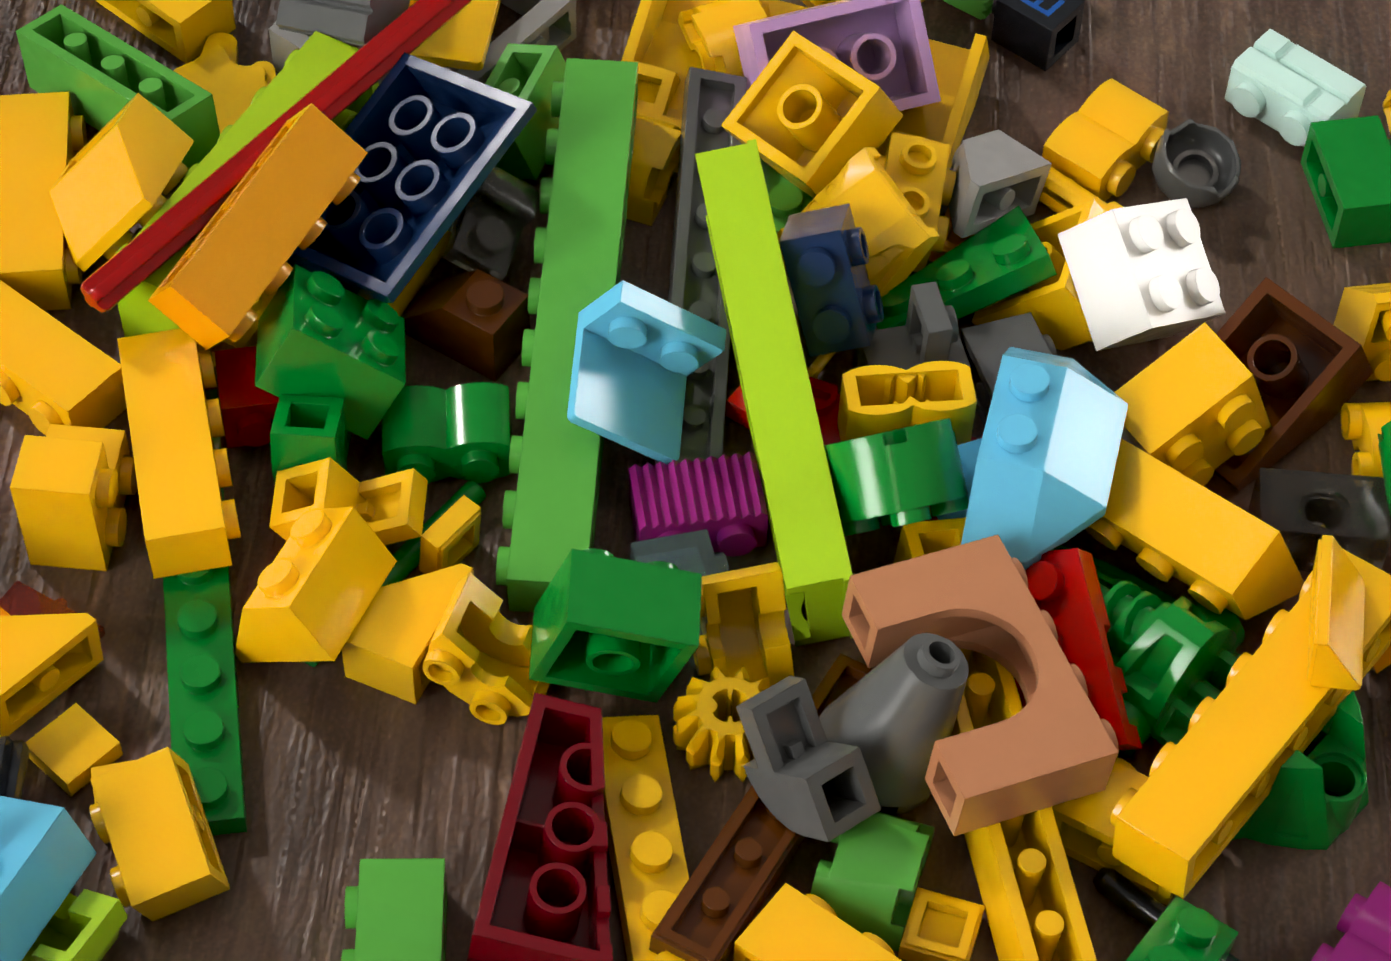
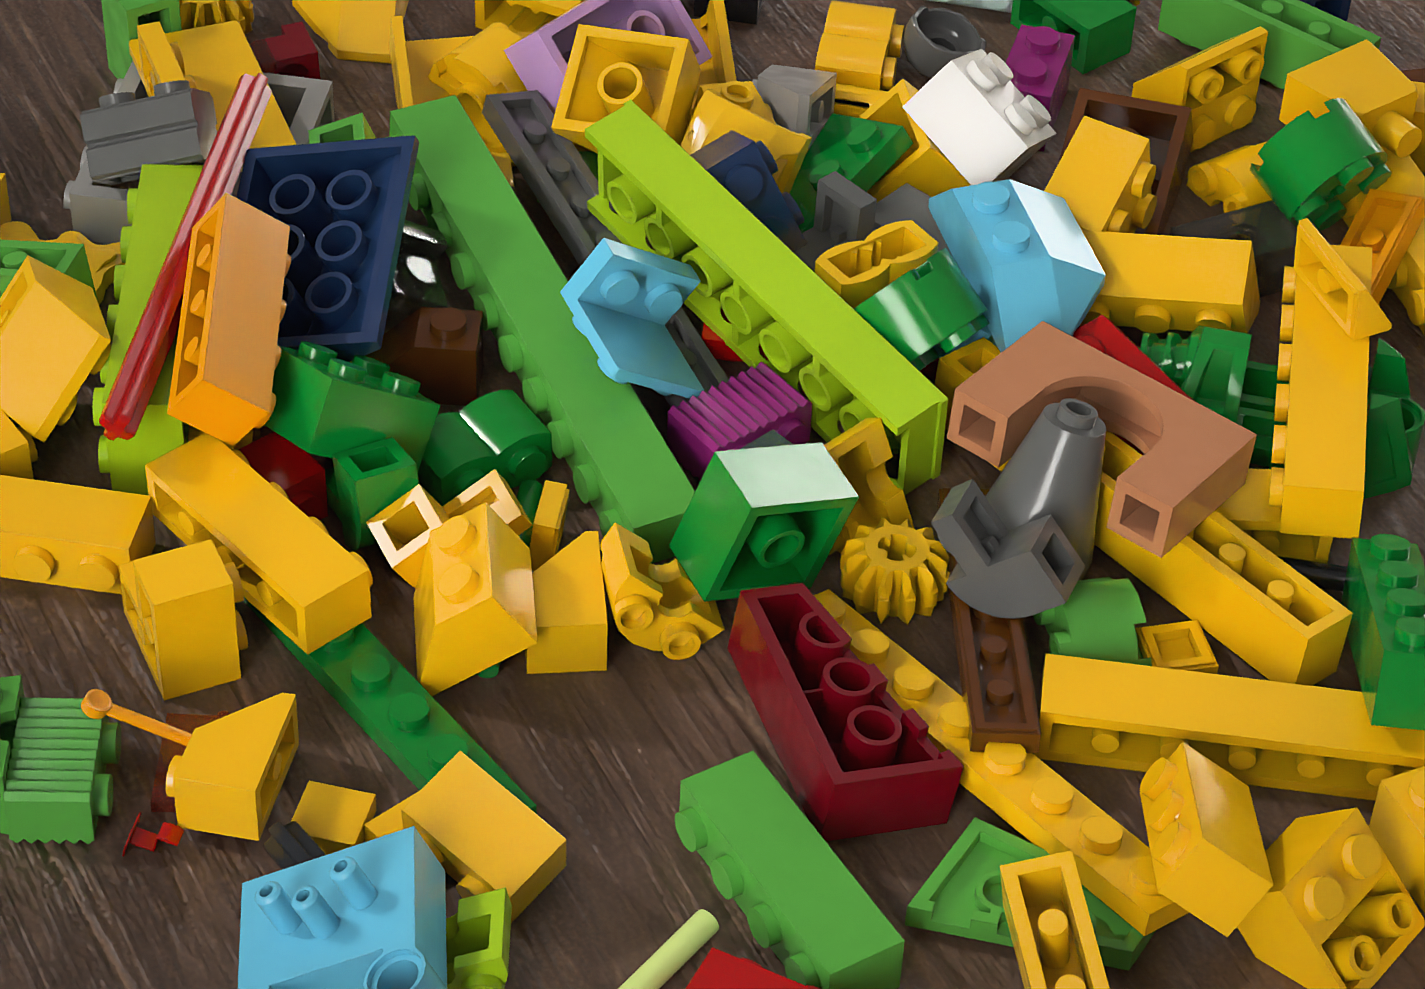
camera: 30 degrees left, 10 degrees down
(1258, 240) = (1042, 66): none -> magenta brick

